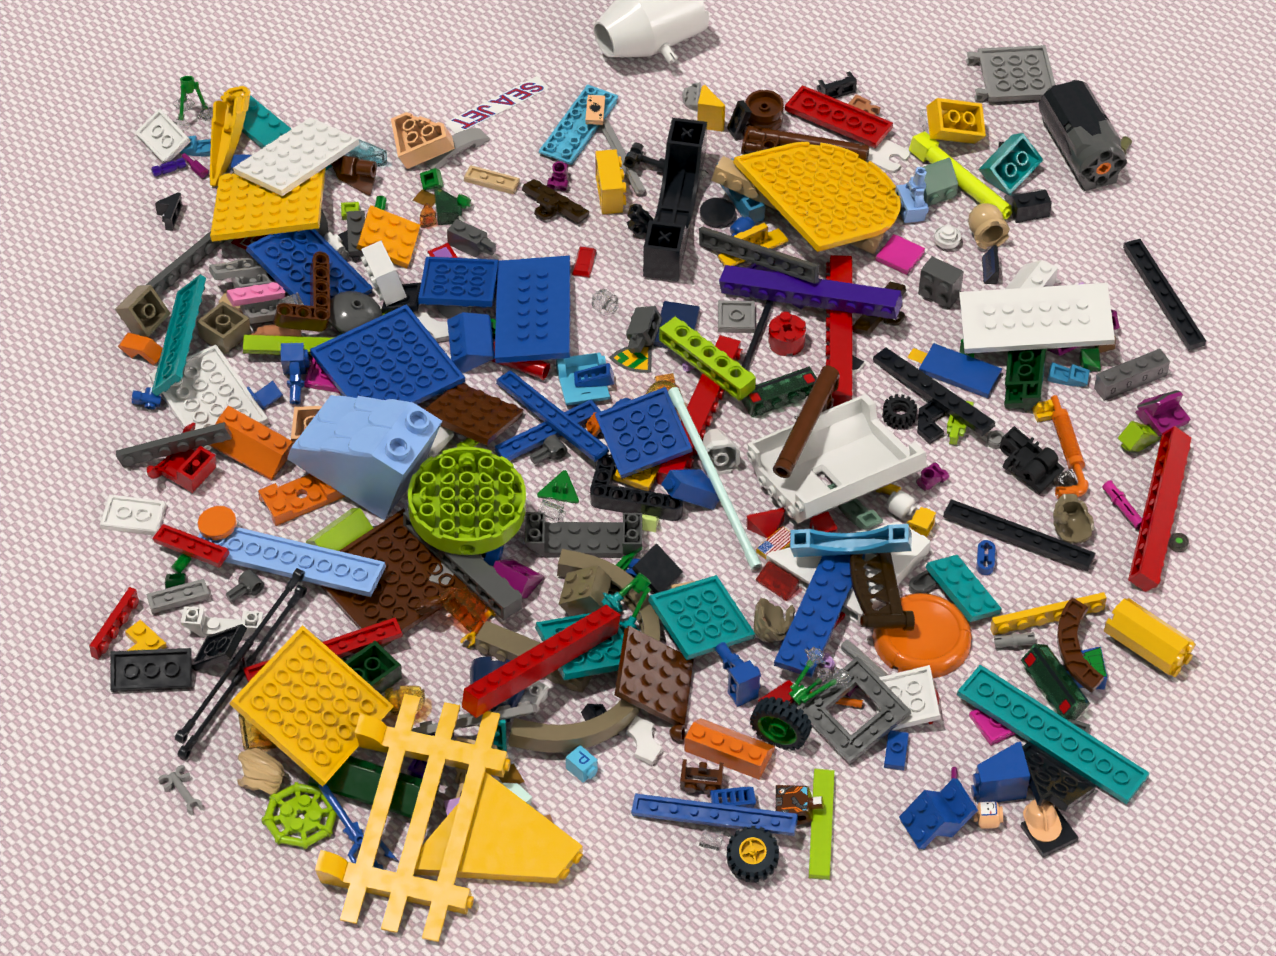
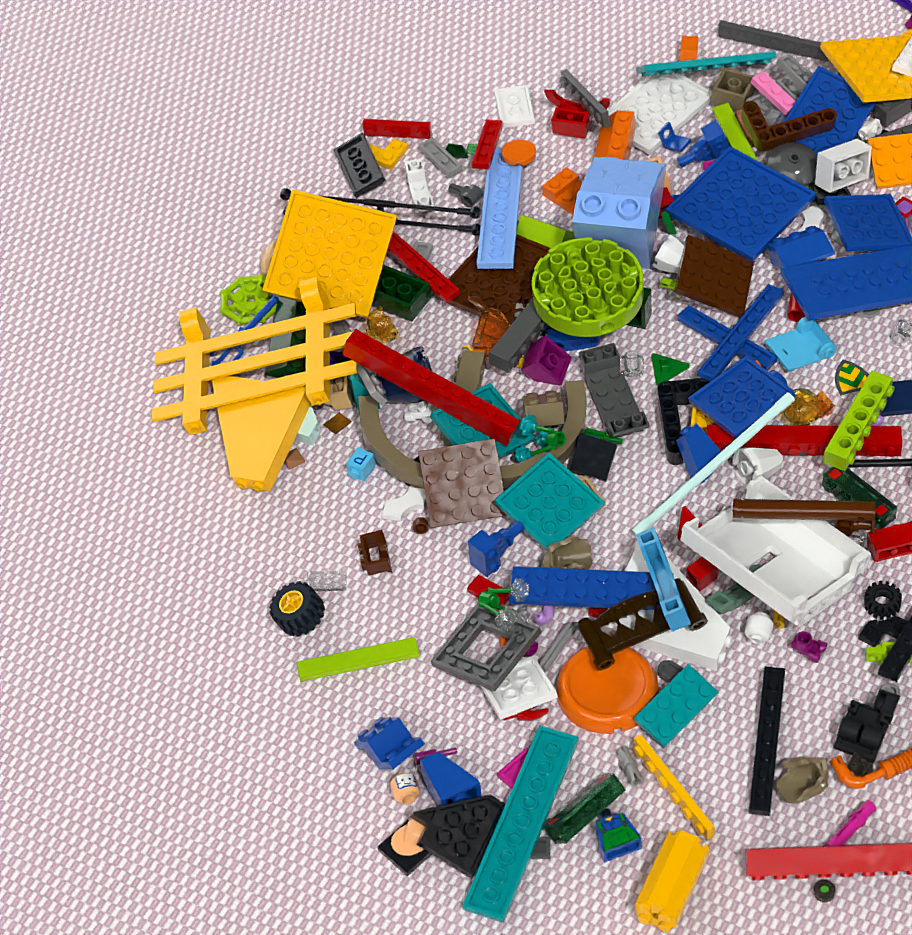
camera: 80 degrees right, 0 degrees up
(142, 310) = (721, 34): dark tan brick -> none
(147, 399) = (632, 64): blue plate -> none
(169, 210) = (853, 19): black slope -> none
(177, 779) = (258, 217): light grey bar -> none
(218, 647) = (387, 191): black tile -> none
(551, 449) = (704, 345): dark grey axle -> none
(599, 376) = (807, 354): blue slope -> none
(643, 328) = (892, 366): dark grey hinge -> none
(649, 523) = (654, 439): yellowish green slope -> none
(713, 814) = (332, 571): blue plate -> none
(728, 747) = (418, 565): orange slope -> none
(733, 793) = (363, 596): blue slope -> none
(777, 541) = (672, 544): tile -> none
(778, 581) = (623, 554): clear red slope -> none
(780, 723) = (442, 589): black wheel -> none
(798, 801) = (364, 628): reddish brown torso -> none
(896, 750) = (461, 698): blue plate -> none
(922, 521) = (745, 652): yellow window -> none
(981, 557) = (727, 718): blue beam -> none
(1070, 649) = (630, 807): reddish brown tile -> none

